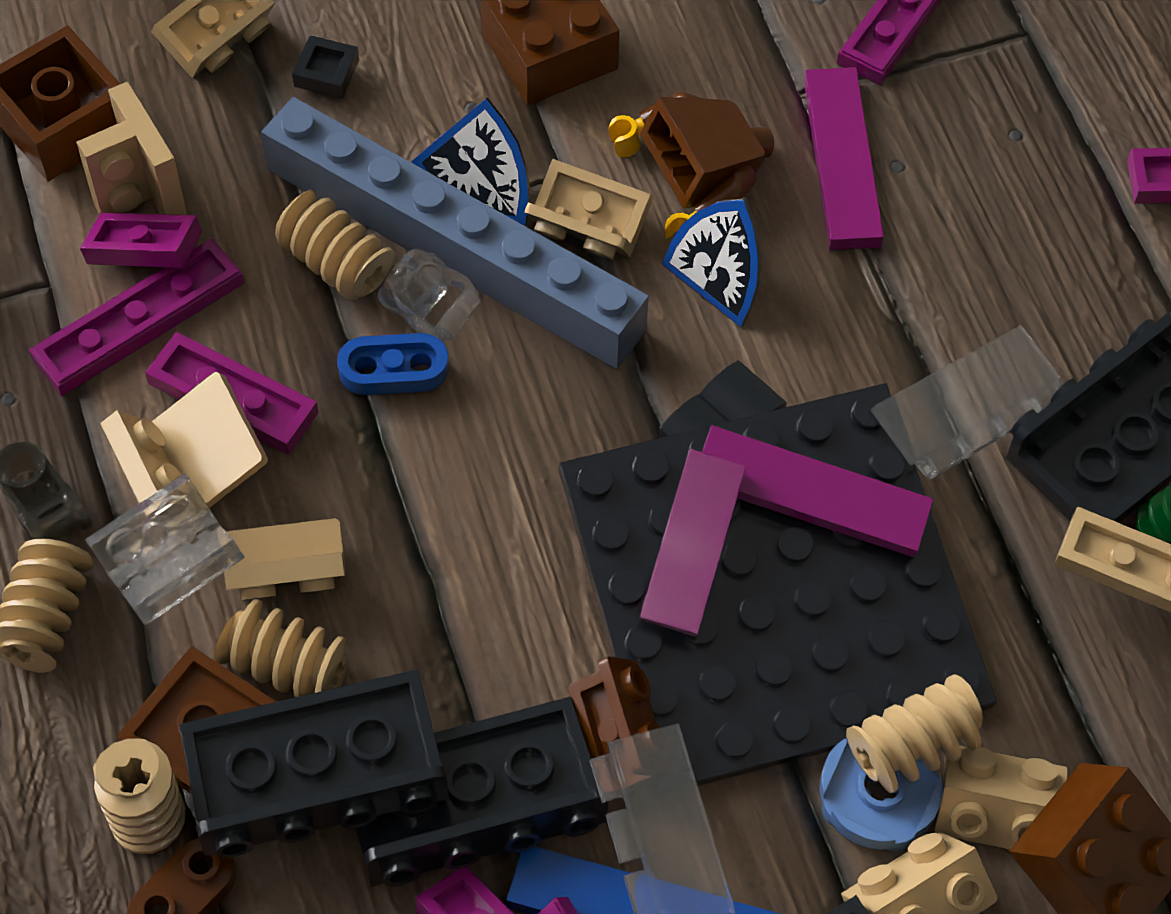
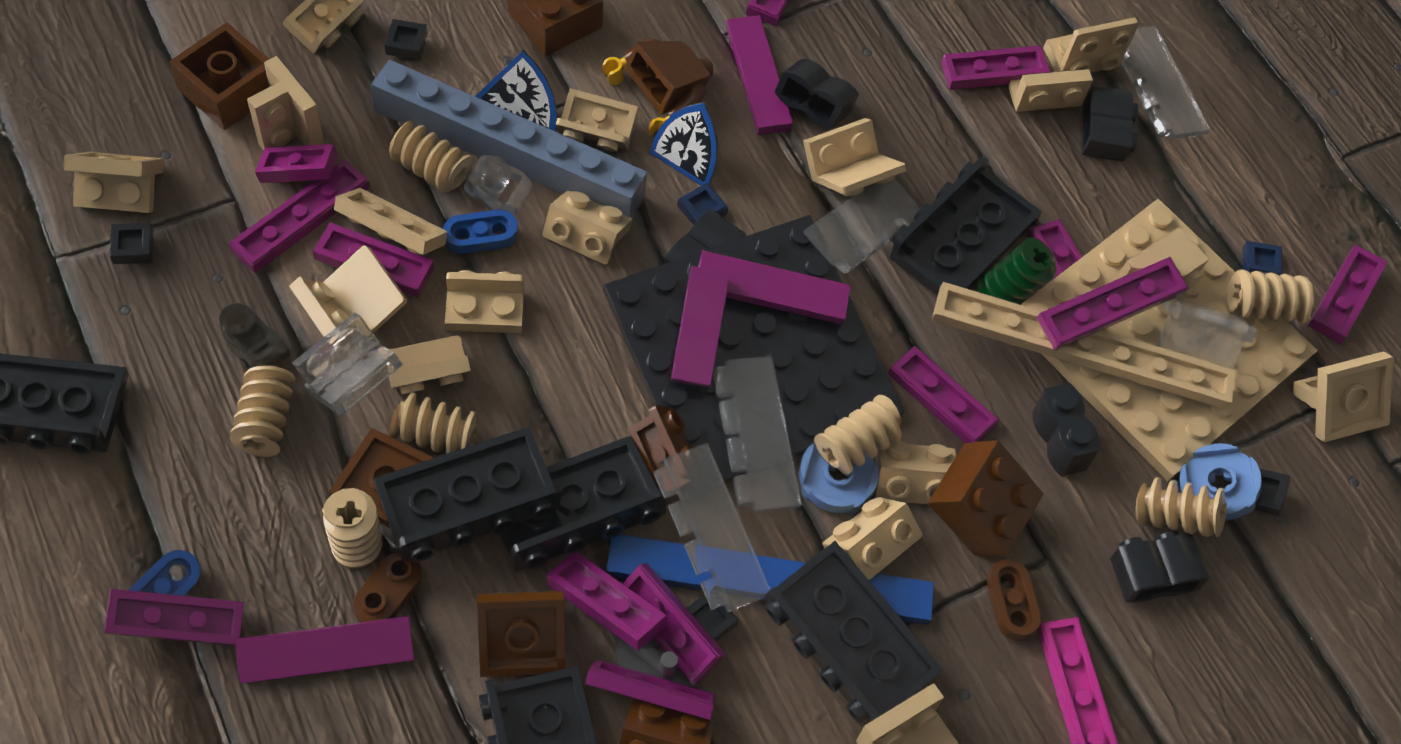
camera: 15 degrees left, 0 degrees up
(264, 337) = (390, 221): none -> tan plate
(384, 471) = (484, 302): none -> tan bracket
(550, 368) = (585, 225): none -> tan bracket
(727, 345) = (700, 201): none -> dark blue tile
(770, 721) = (763, 440): none -> clear windscreen
(928, 196) = (812, 89): none -> black brick
(963, 300) = (849, 159): none -> tan bracket
(1062, 684) = (943, 396): none -> magenta tile

